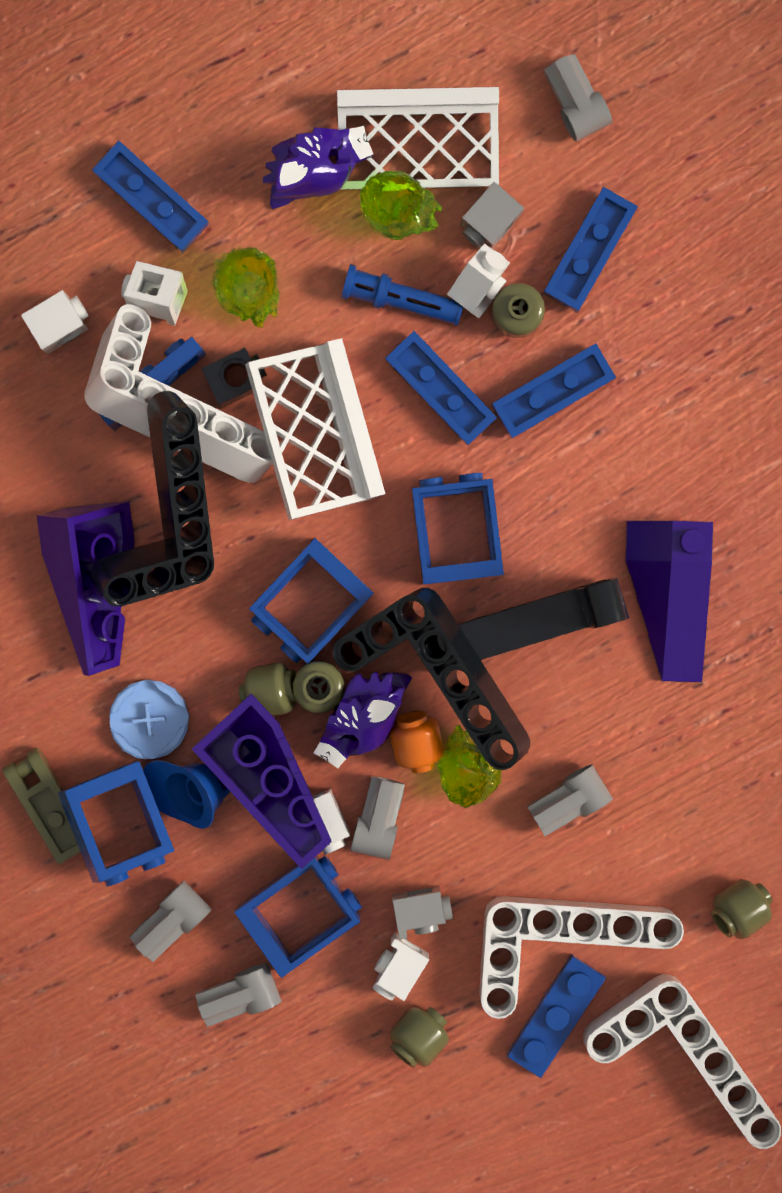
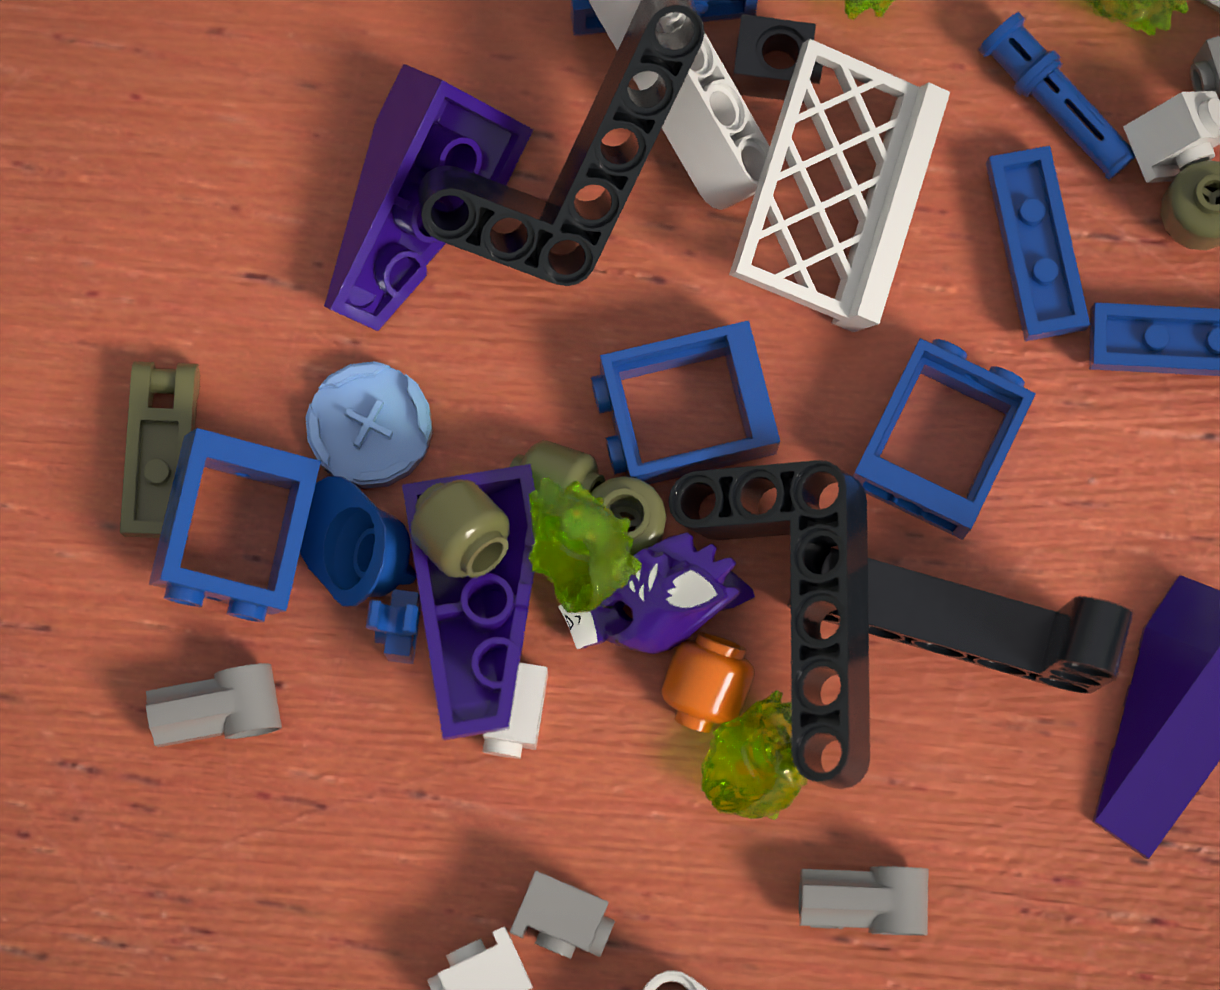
camera: 25 degrees right, 10 degrees down
(236, 819) = (396, 625): none -> blue plate
(239, 757) = (460, 529): none -> olive head
(249, 992) = (251, 873): light grey piece -> none
(266, 937) = (328, 807): blue window -> none
(307, 724) = (579, 545): none -> clear neon green hair
(377, 828) = (576, 762): light grey piece -> none

